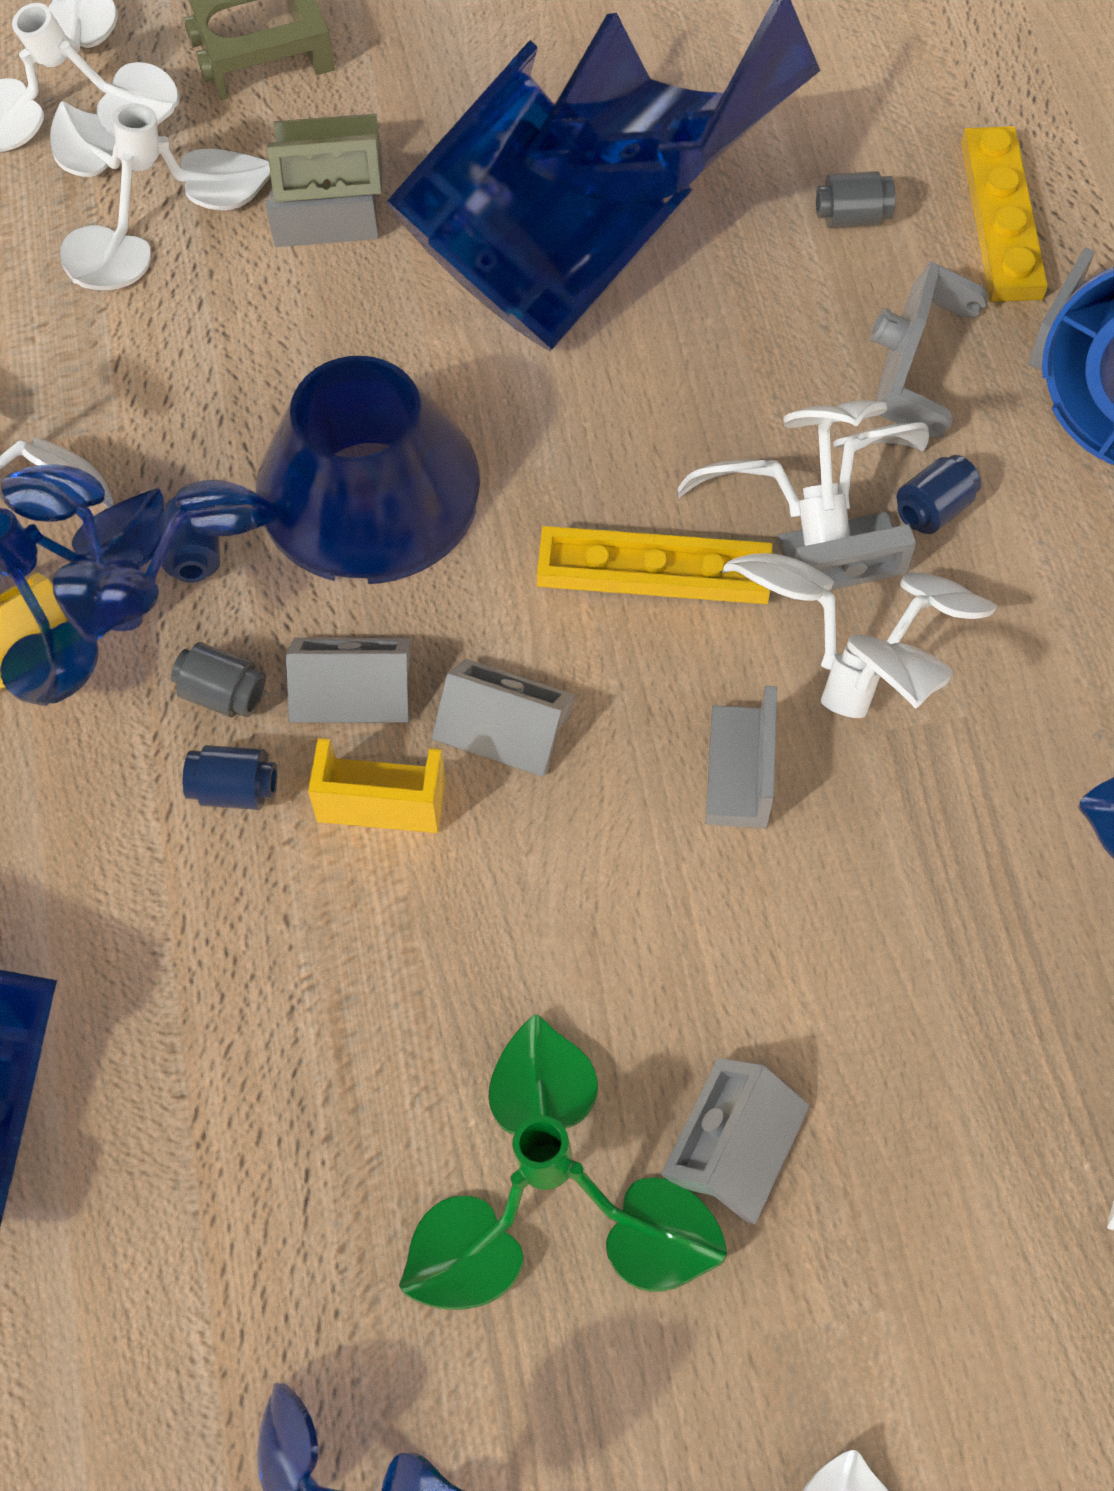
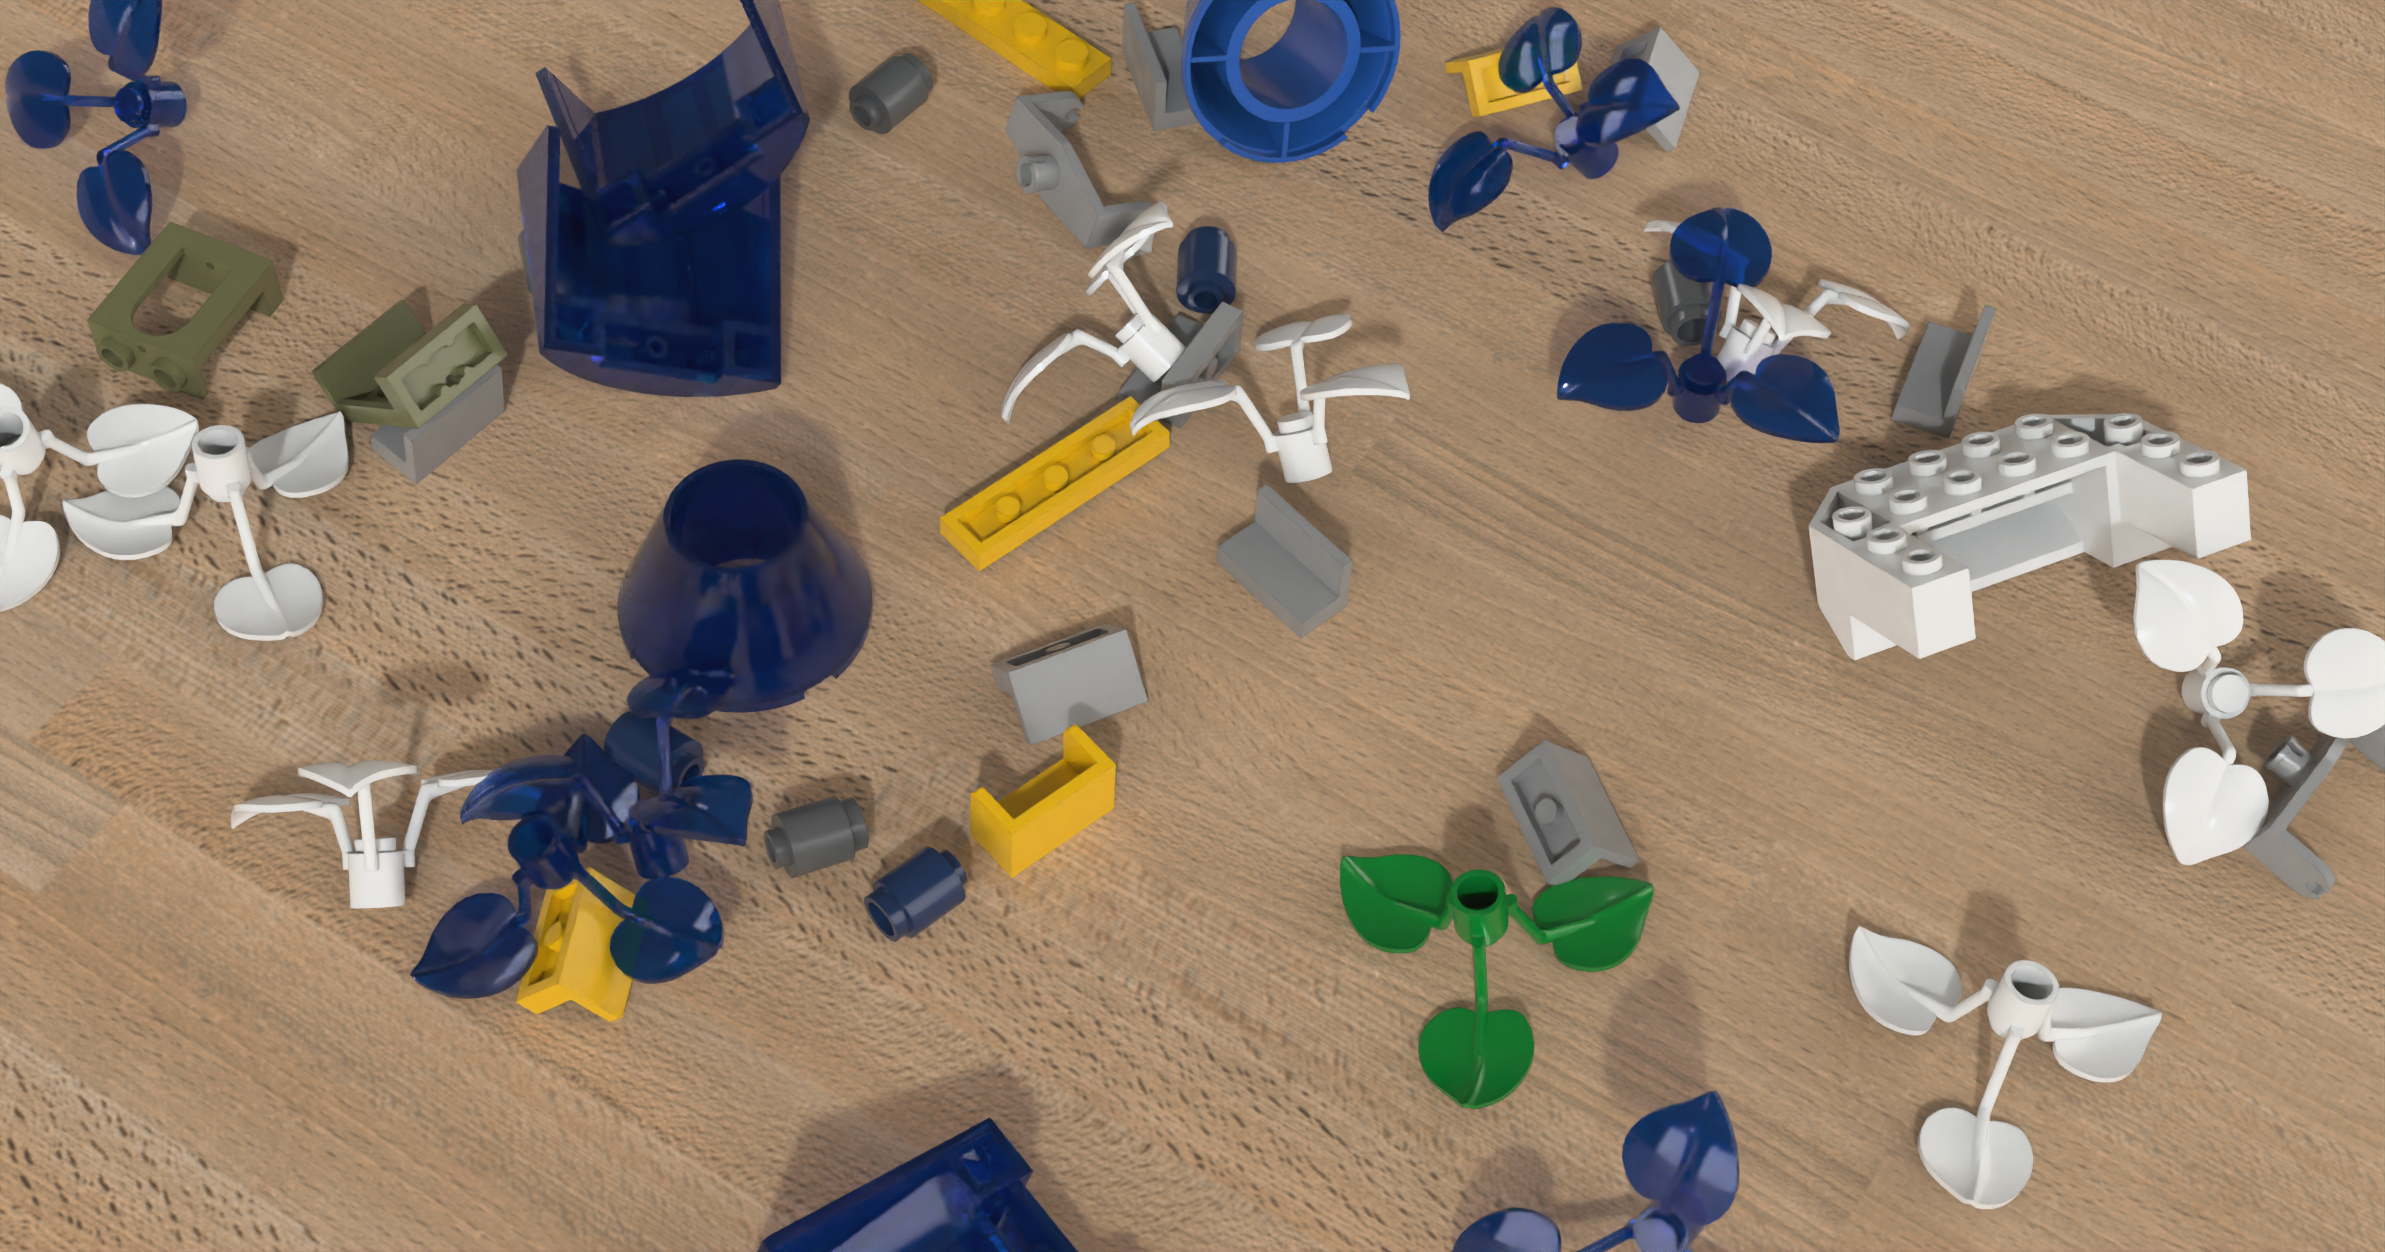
camera: 50 degrees left, 10 degrees down
(348, 680) = (919, 750): light grey panel -> none

